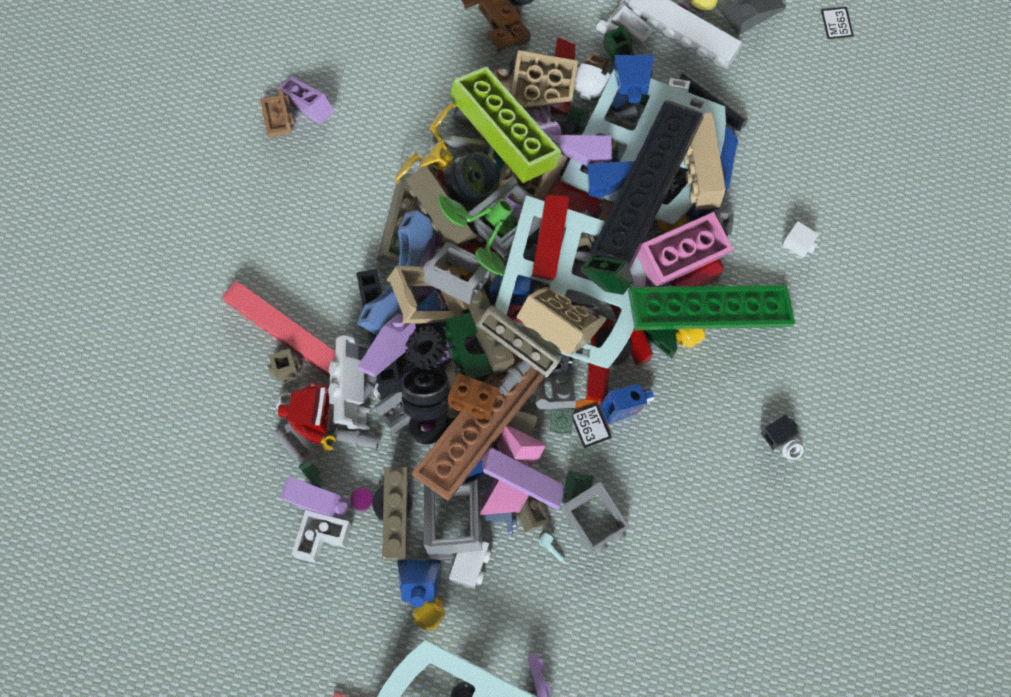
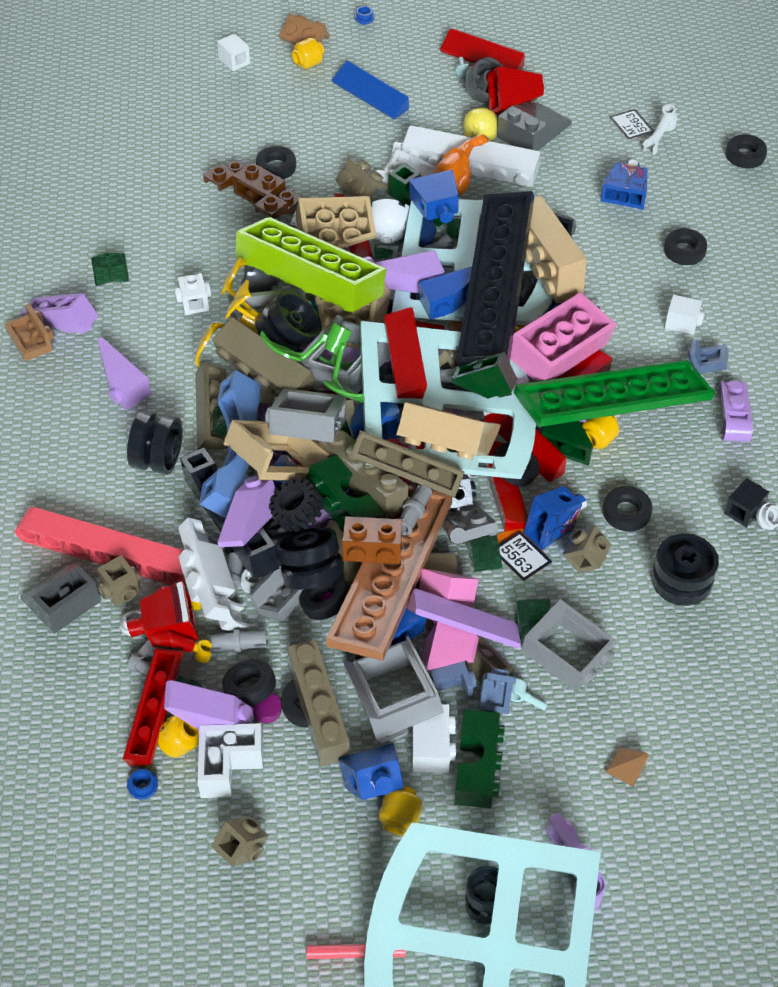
camera: 15 degrees left, 20 degrees down
(239, 364) = (62, 597): none -> dark grey slope
(252, 532) = (142, 776): none -> blue plate
(286, 467) = (151, 711): none -> red slope
(288, 511) = (177, 737): none -> yellow head
(313, 600) = (240, 841): none -> dark tan brick
(336, 179) = (125, 381): none -> lavender slope
(342, 250) = (154, 442): none -> black wheel
(345, 469) = (245, 670): none -> black tyre
(356, 66) = (109, 268): none -> clear green panel
(413, 110) = (193, 293): none -> white brick
(491, 608) = (476, 781): none -> dark green arch
(528, 540) = (496, 691): none -> sand blue bracket
(583, 28) = (359, 179): none -> dark tan bracket
(603, 625) = (628, 765): none -> medium nougat slope
(639, 439) = (587, 549): none -> dark tan brick
(663, 38) = (458, 161): none -> orange hair
(692, 397) = (627, 522): none -> black tyre
(705, 491) = (685, 569): none -> black wheel
(804, 288) = (708, 358): none -> sand blue bracket
(805, 91) = (626, 185): none -> blue torso
(806, 344) = (736, 411): none -> lavender plate
(830, 180) = (687, 236): none -> black tyre
(866, 32) = (667, 122): none -> white brick
(919, 91) = (748, 142): none -> black tyre

